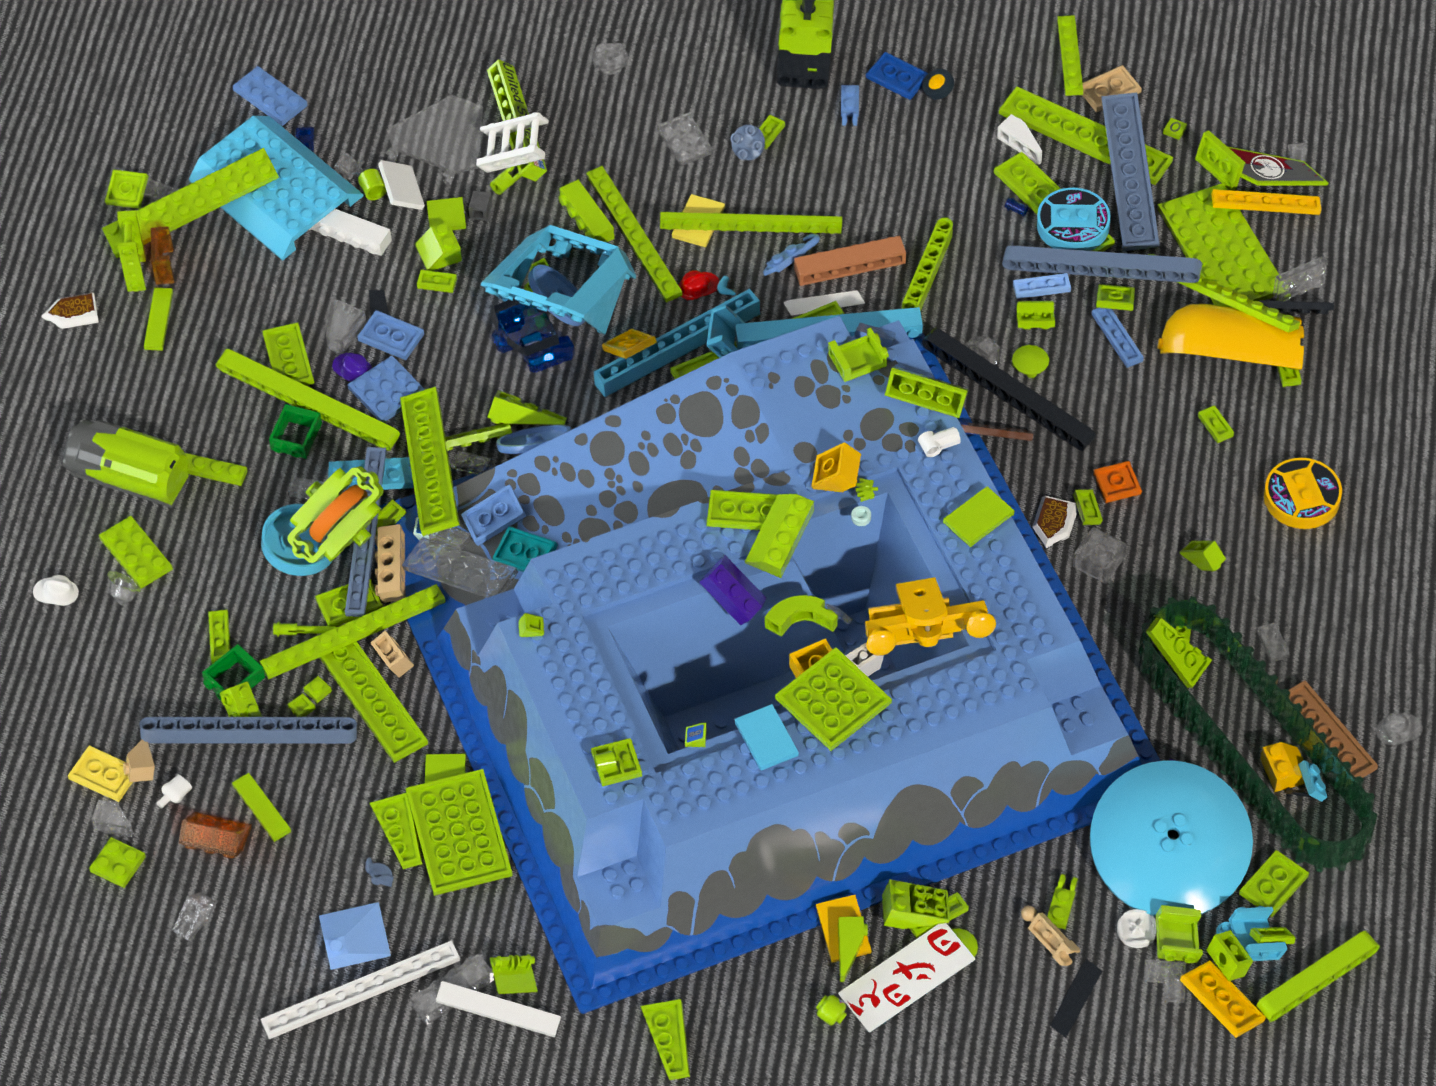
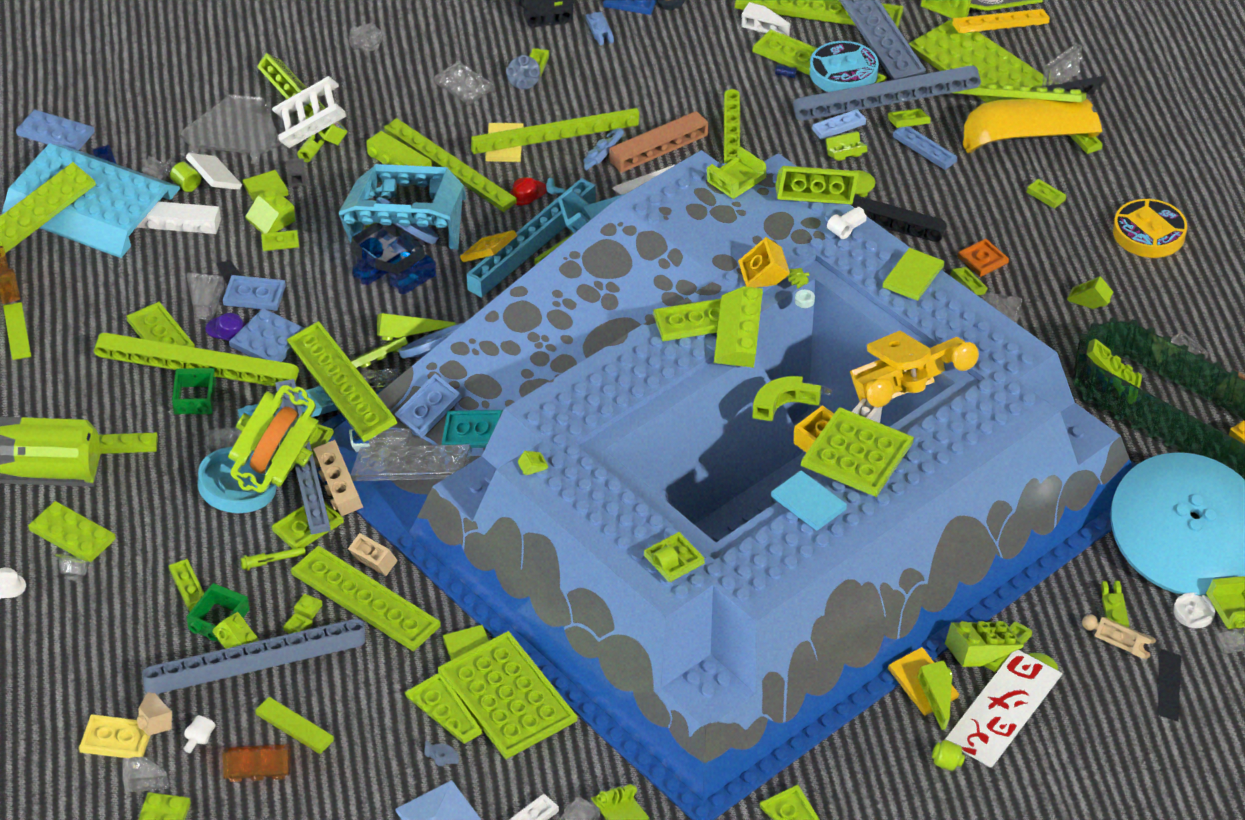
camera: 20 degrees left, 10 degrees down
(352, 631) = (323, 545): lime plate -> none
(696, 735) = (741, 515): slope -> none
(733, 590) = (712, 390): dark purple slope -> none

